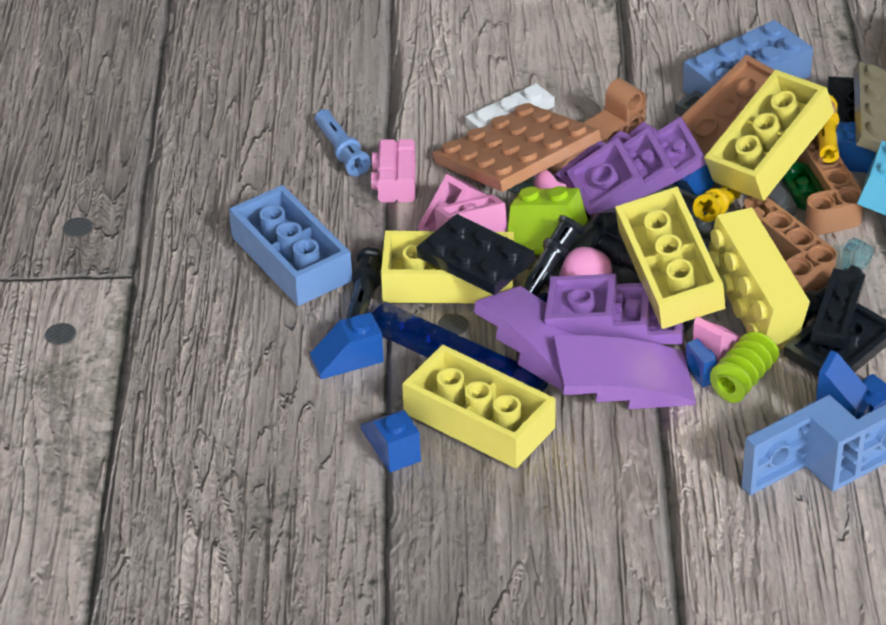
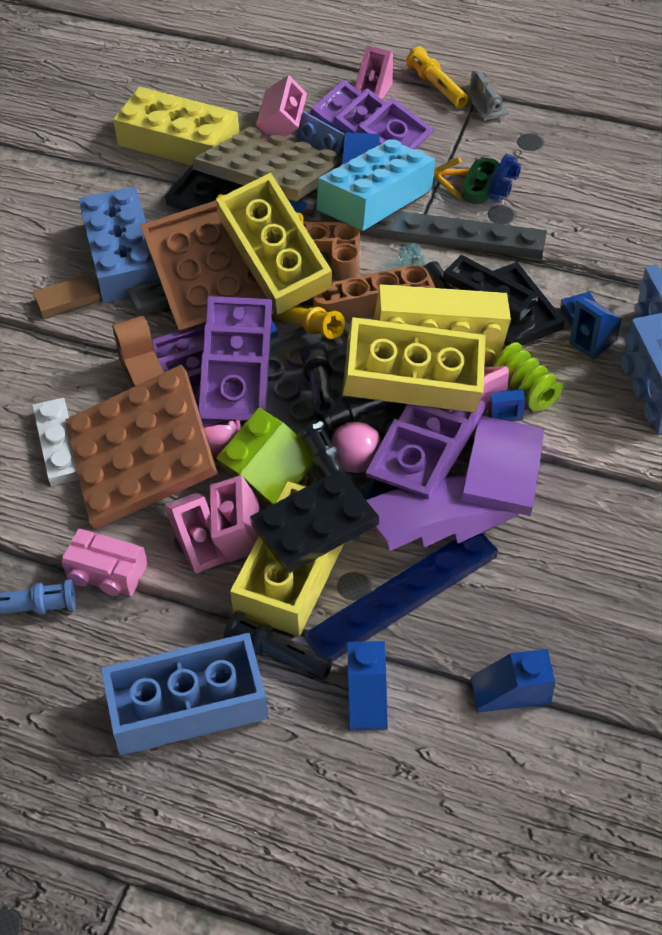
camera: 70 degrees left, 10 degrees up
(479, 406) = (510, 591): light yellow brick -> none
(666, 61) = (66, 296): none -> medium nougat tile

